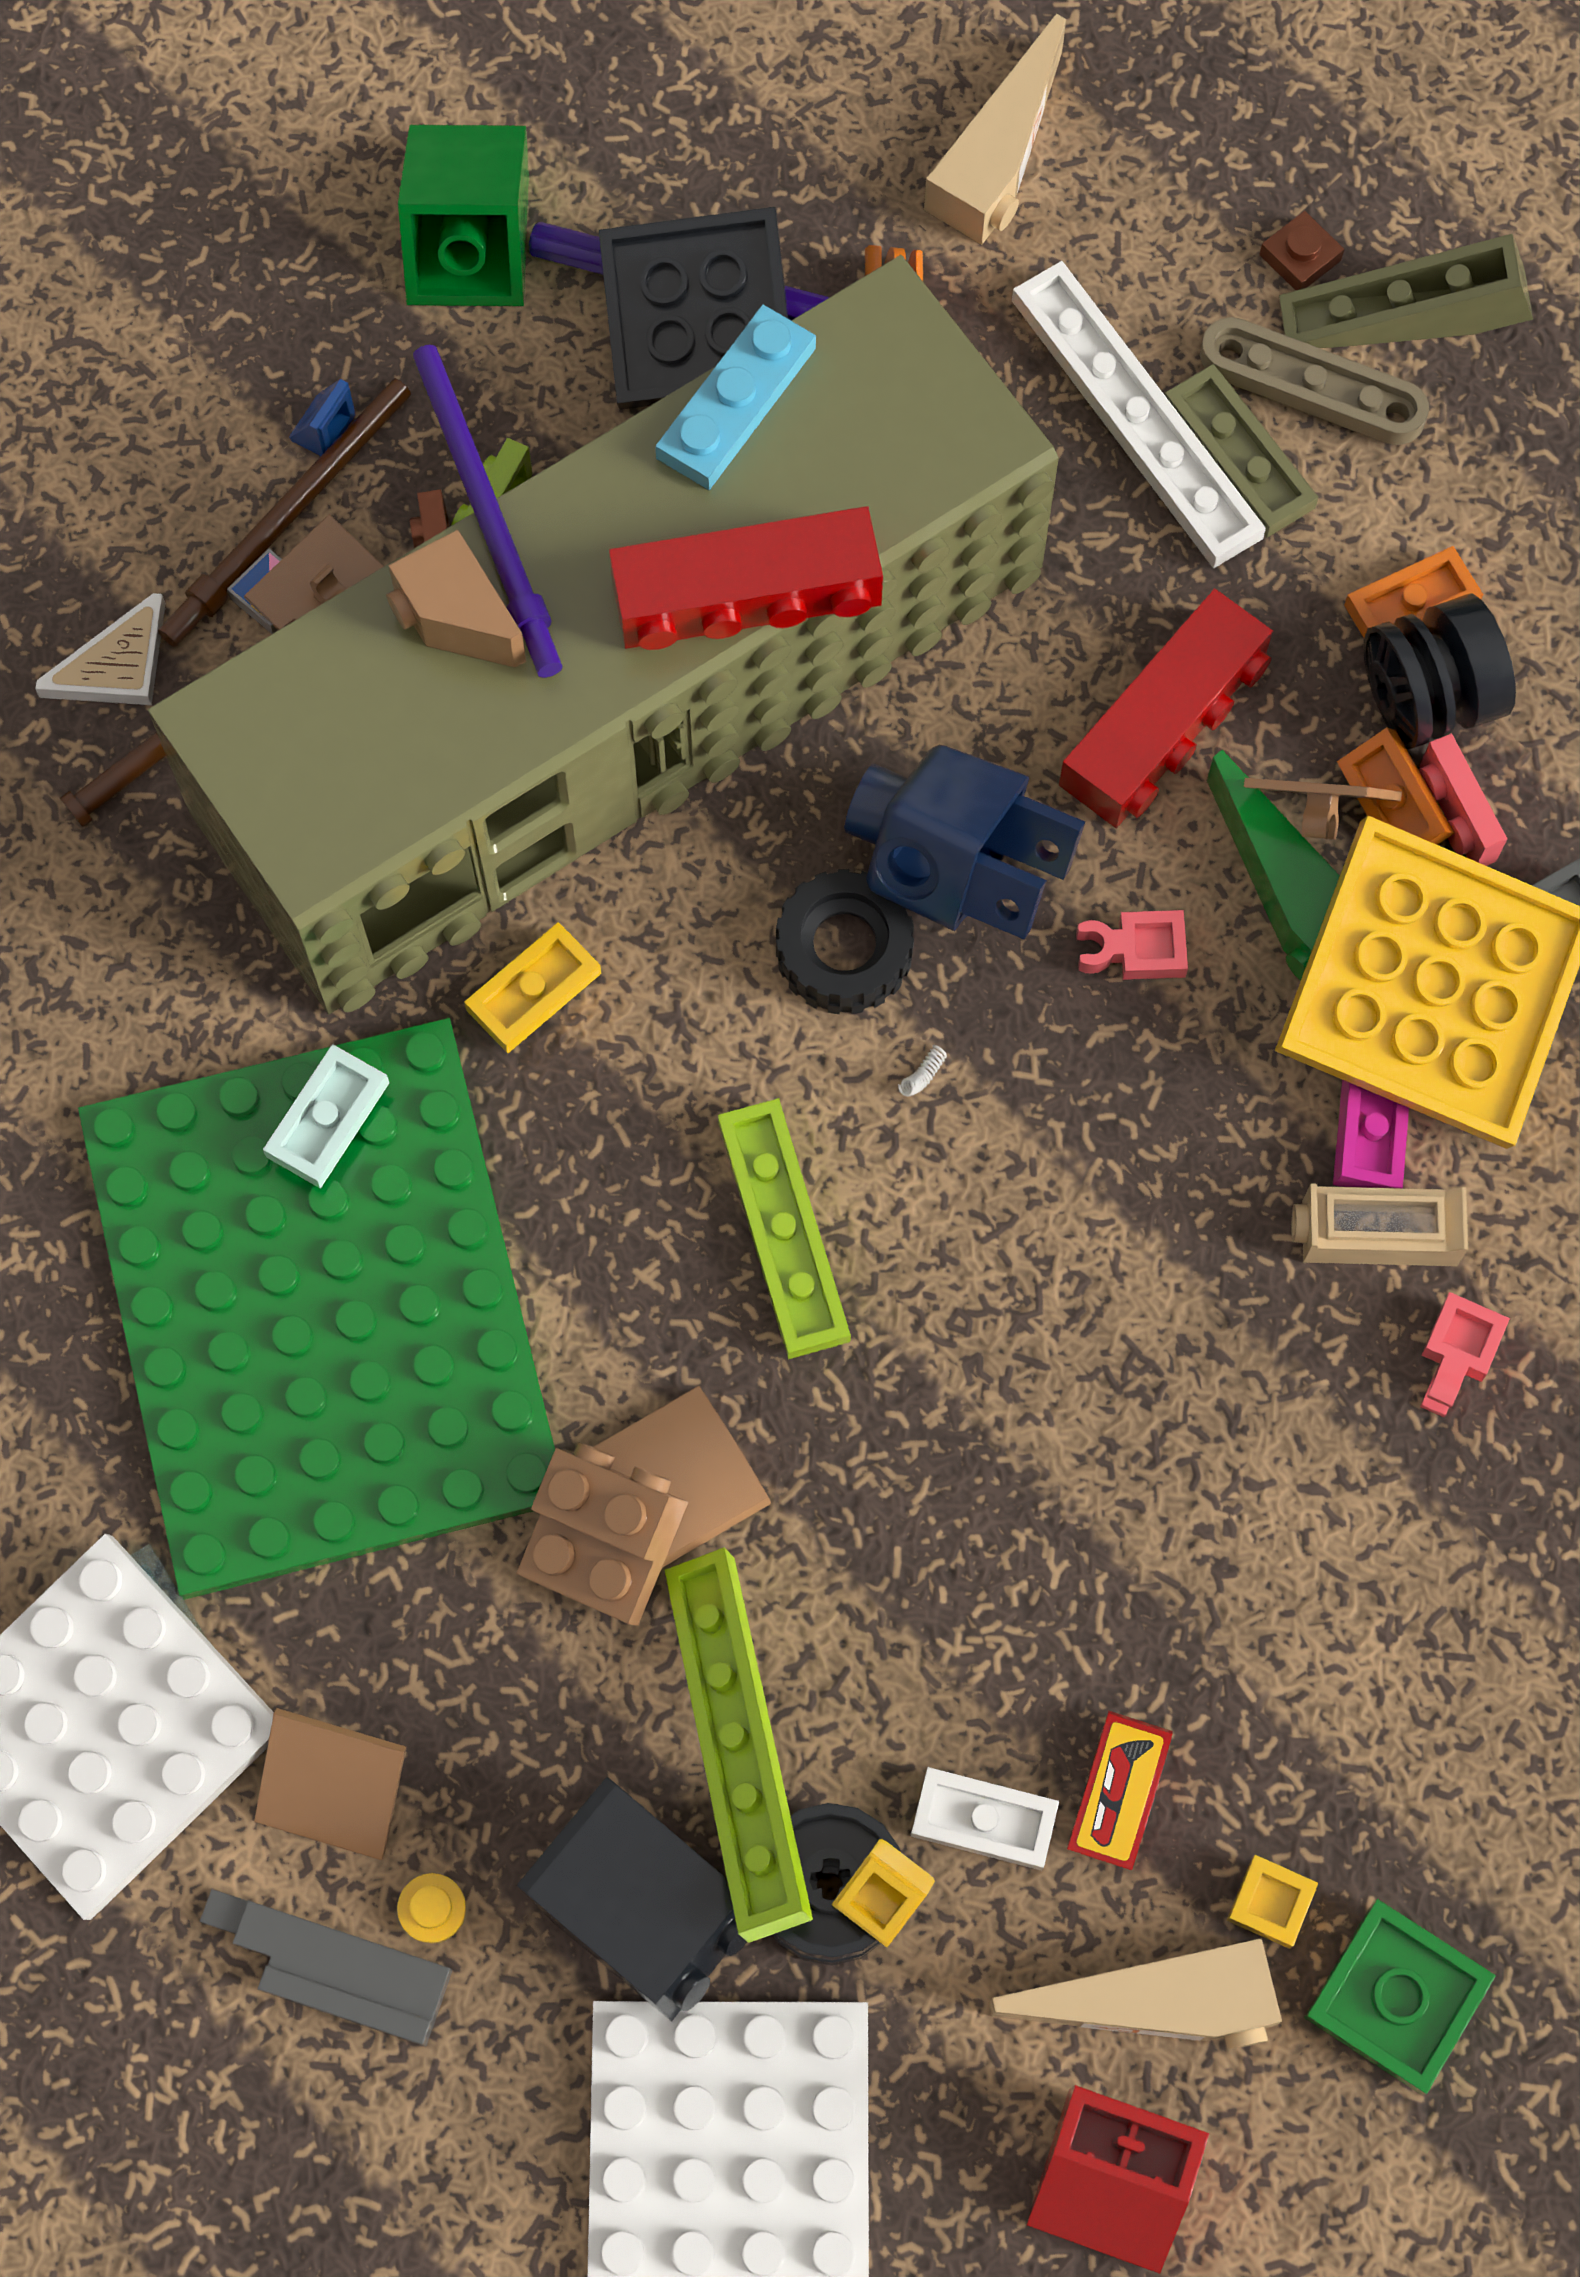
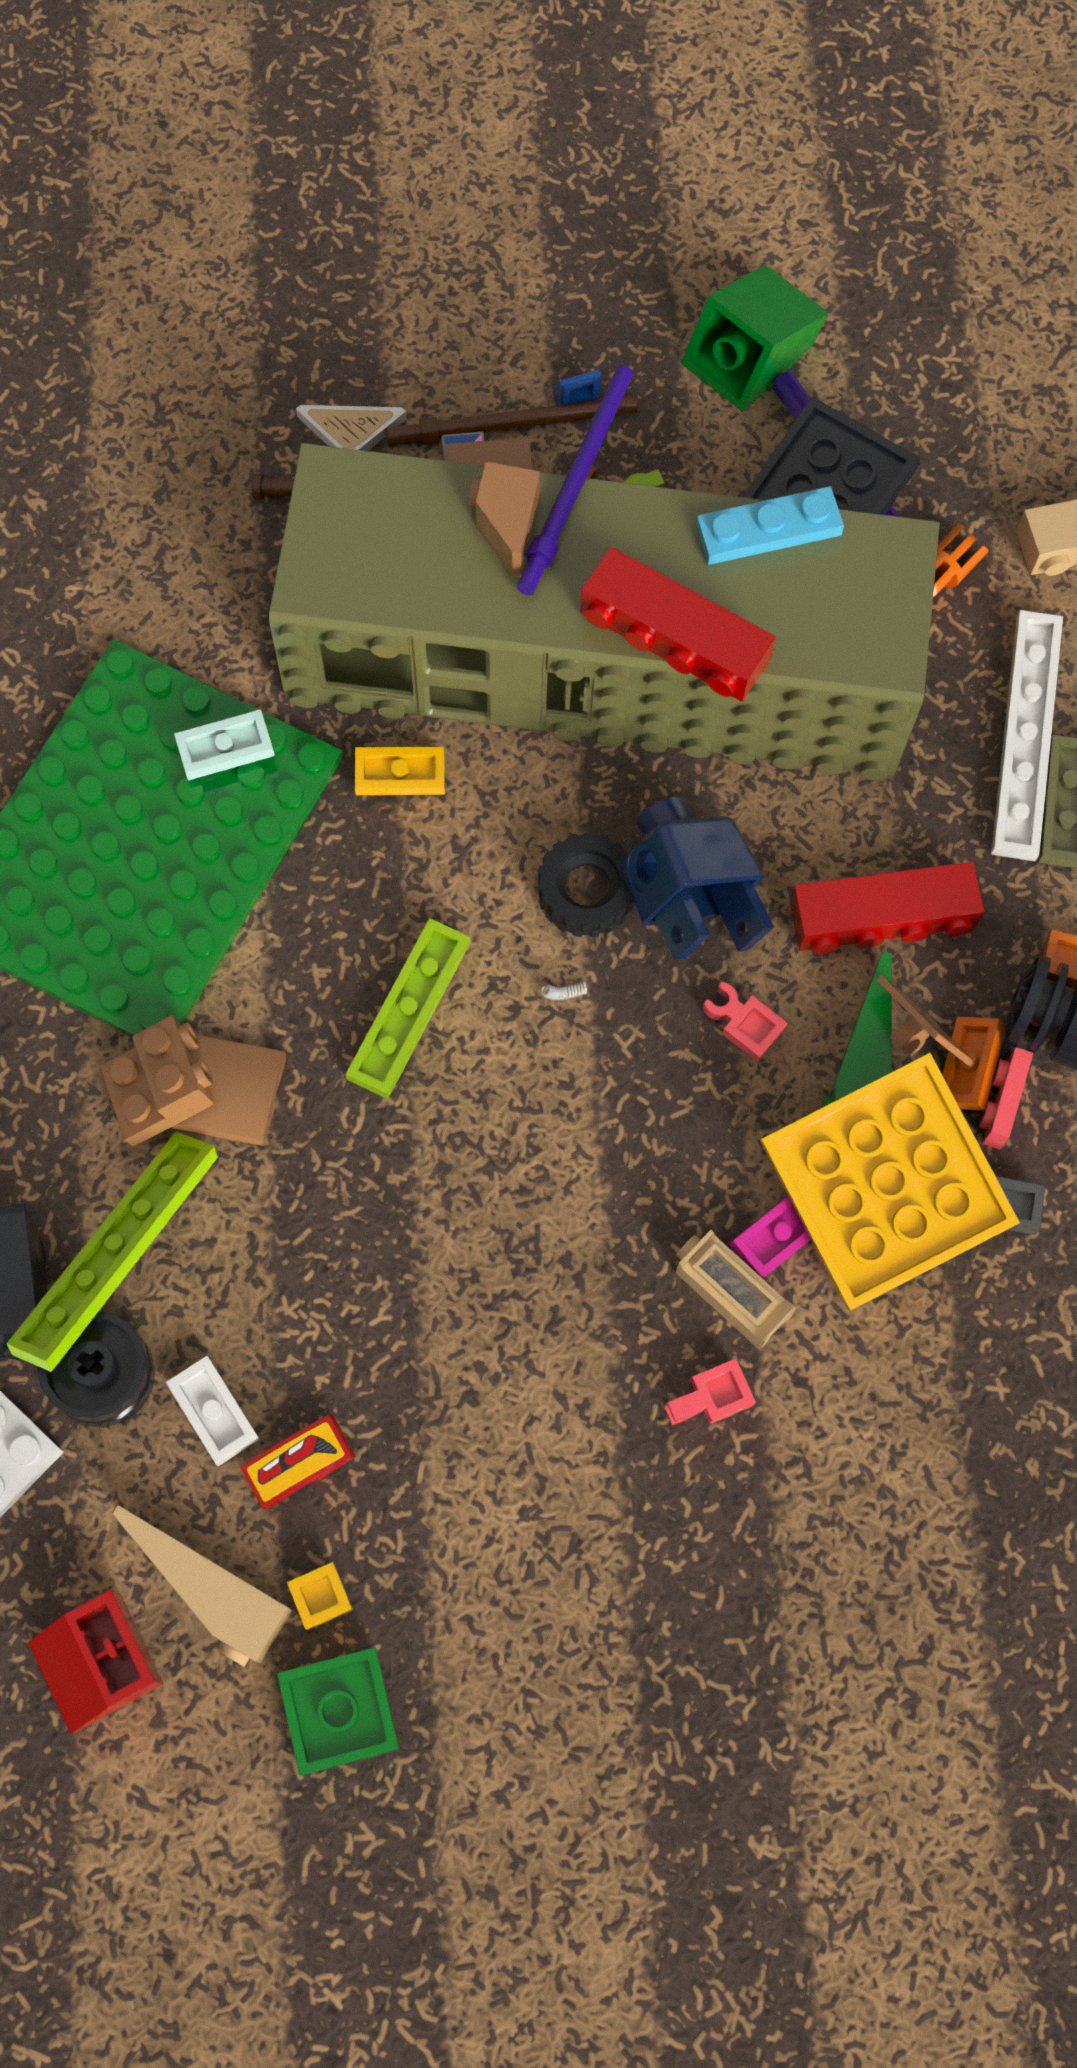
camera: 40 degrees right, 0 degrees up
(884, 1892) = (109, 1394): yellow slope -> none

